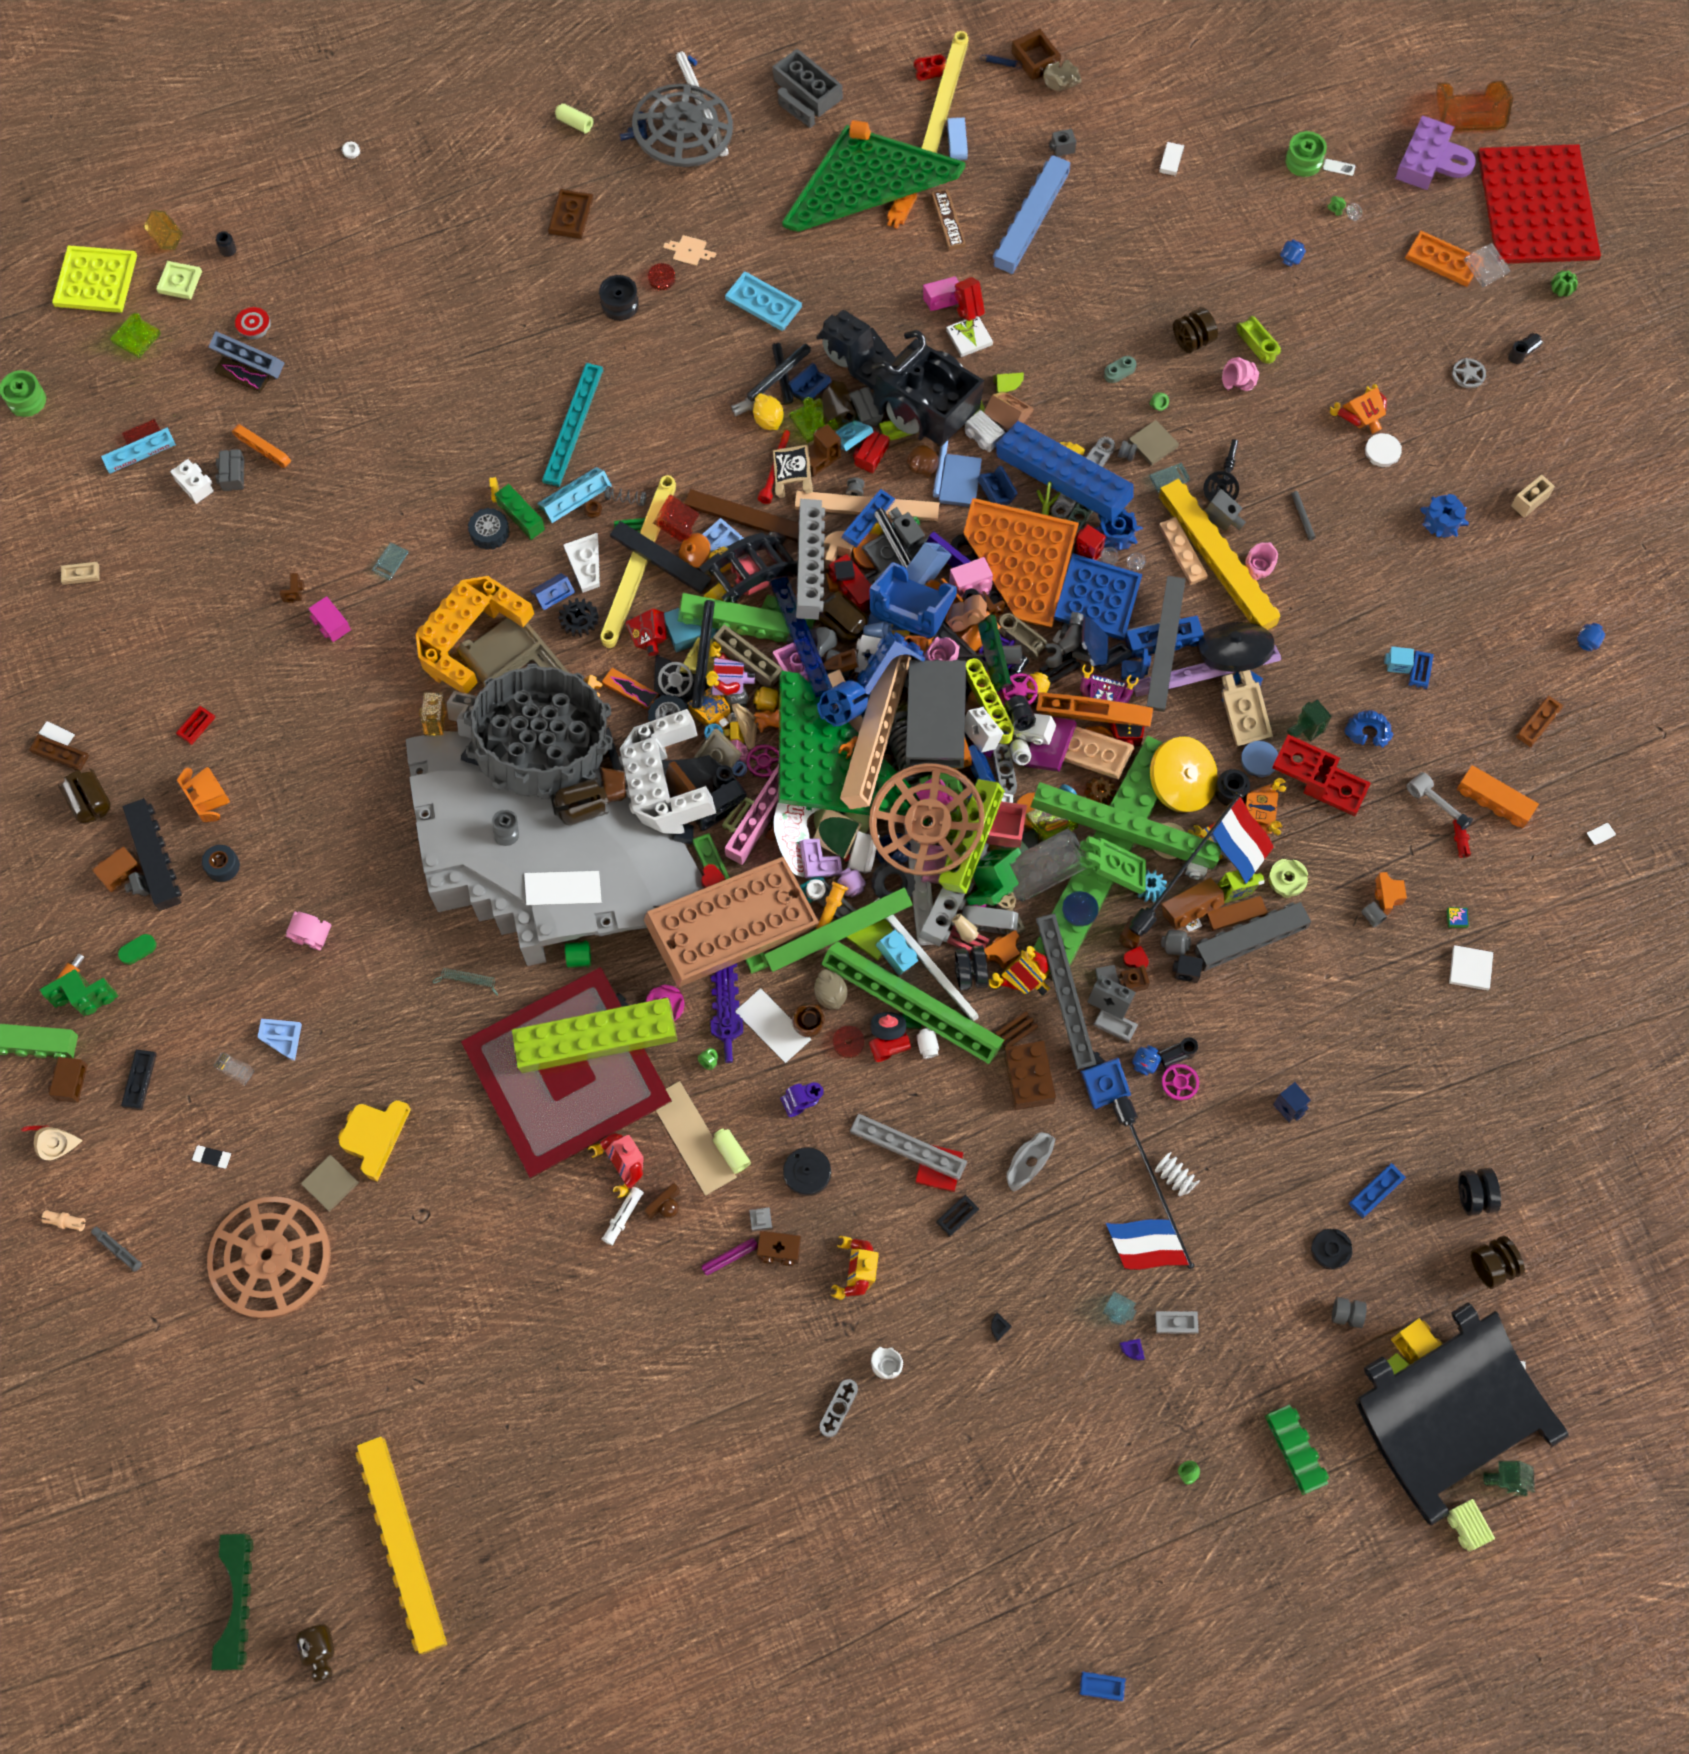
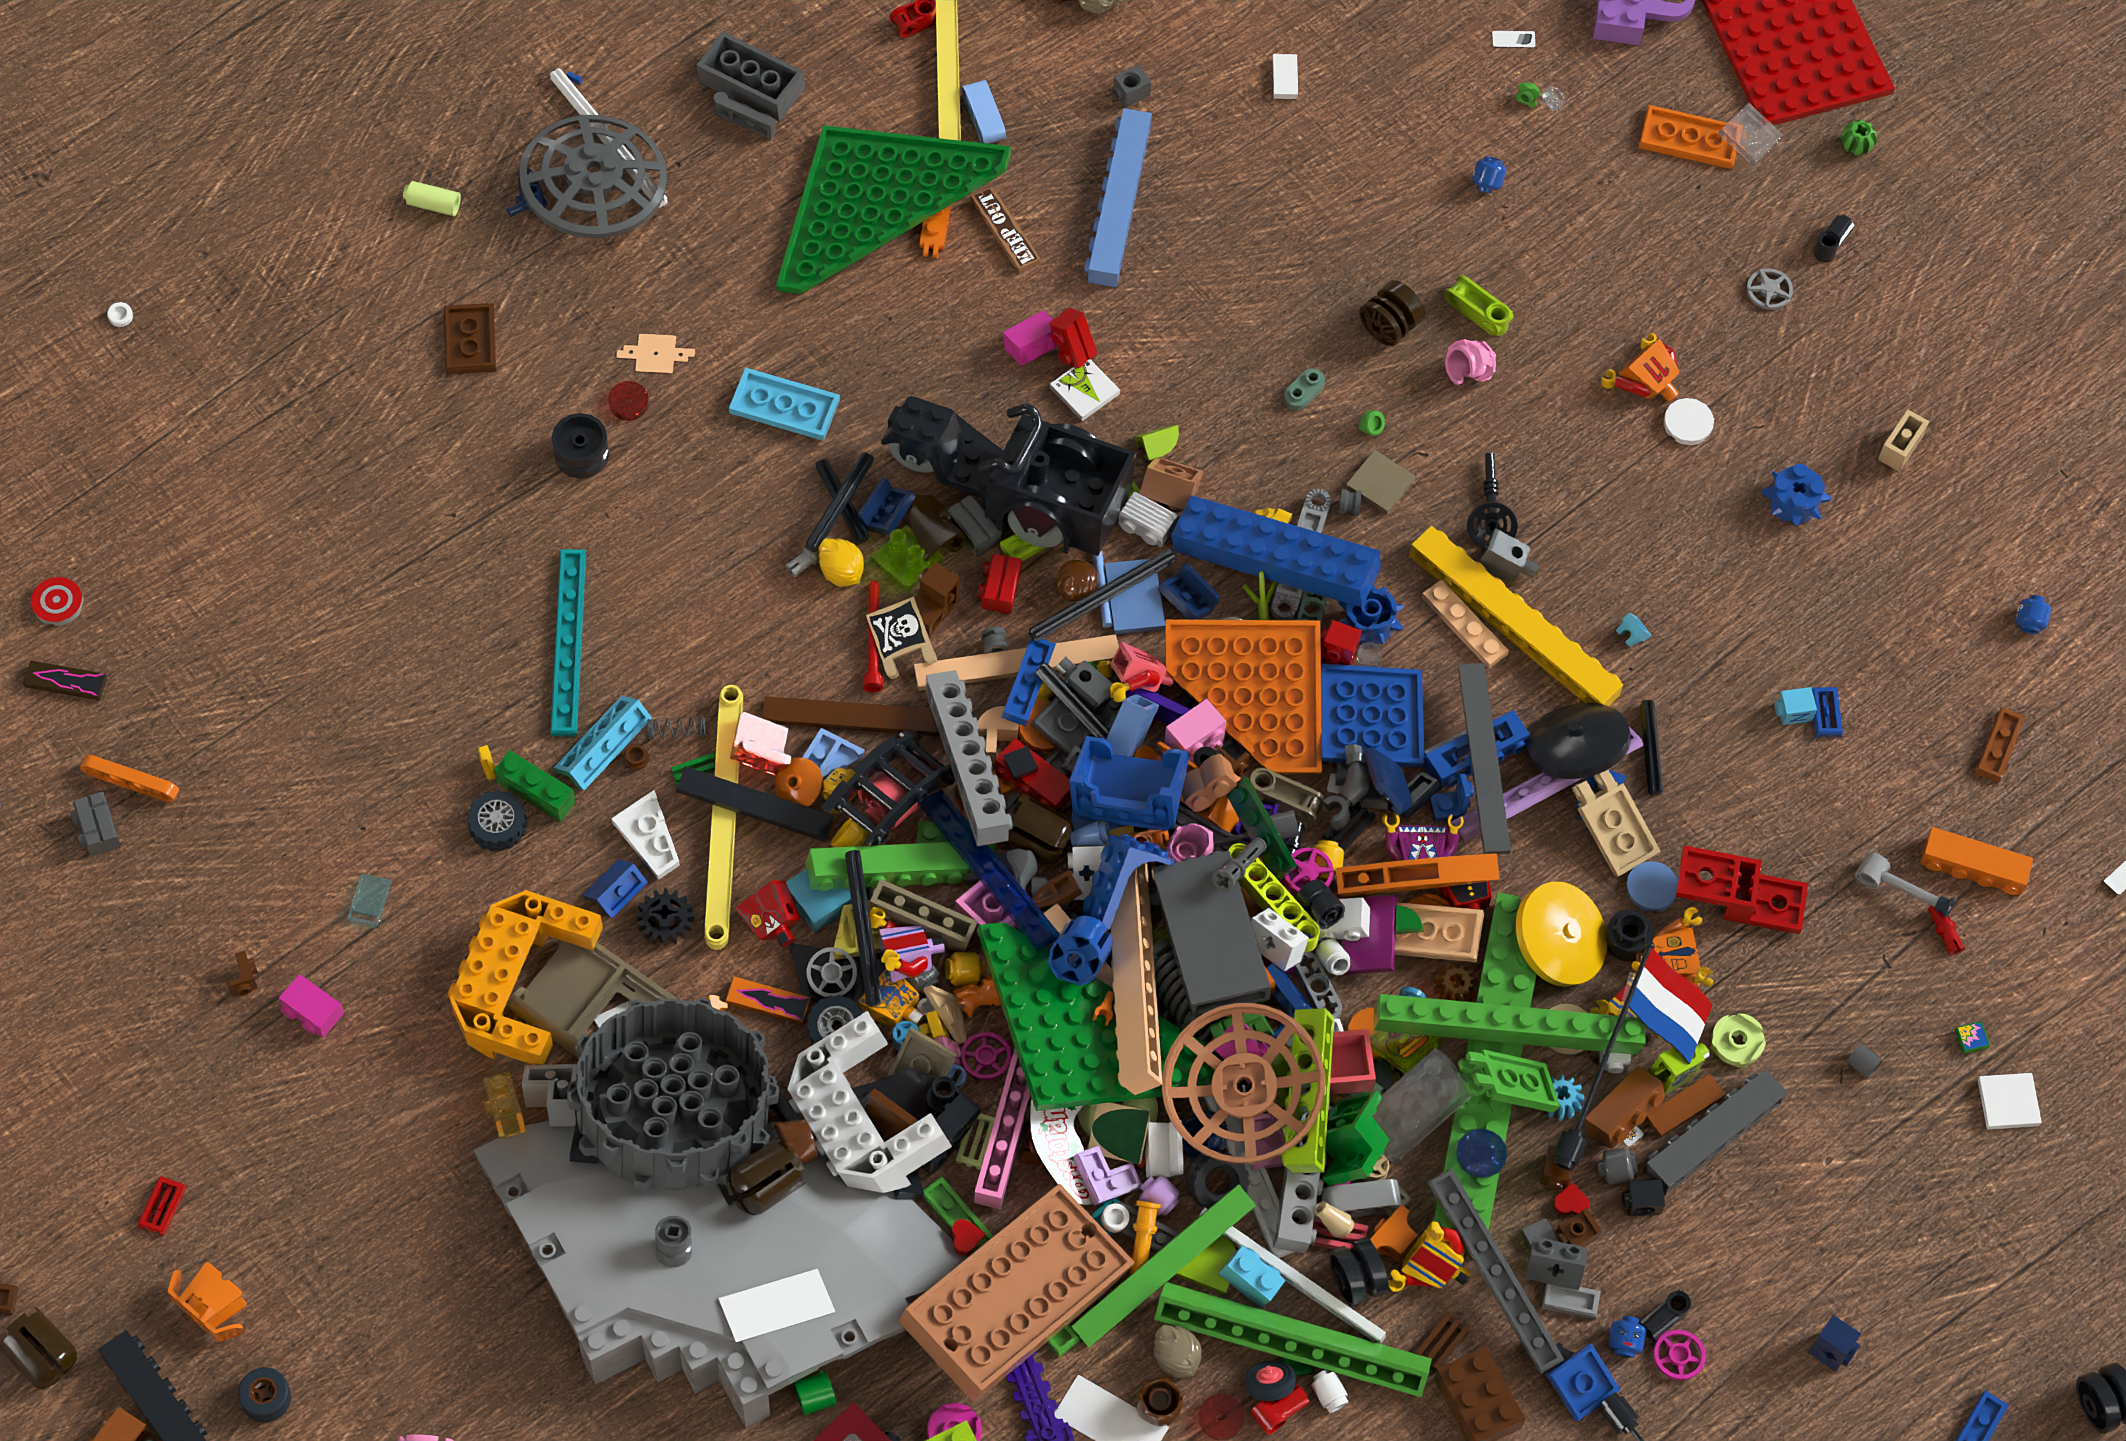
camera: 20 degrees left, 5 degrees down
(192, 481) = (44, 853): white brick -> none
(246, 354) = (66, 651): sand blue brick -> none
(853, 433) = (970, 565): medium azure tile -> none
(859, 130) = (847, 131): orange brick -> none
(936, 473) = (1102, 595): none -> black axle
(942, 527) = (1136, 670): none -> torso
(986, 663) = (1236, 867): none -> dark grey pin
(1079, 740) = (1407, 921): none -> green tile
(1136, 561) = (1407, 653): clear tile -> none
(1167, 476) = (1414, 525): clear light blue piece -> none
(1261, 560) = (1575, 613): bright pink hair -> none
(1288, 664) = (1651, 747): none -> black axle
(1302, 513) = (1610, 537): dark grey piece -> none
(1302, 581) = (1636, 628): none -> medium azure tile
(1306, 154) = (1465, 31): bright green wheel -> none
(1311, 721) = (1706, 818): clear green brick -> none
(1369, 718) = (1782, 795): blue piece -> none
(1389, 892) = (1875, 1026): orange brick -> none

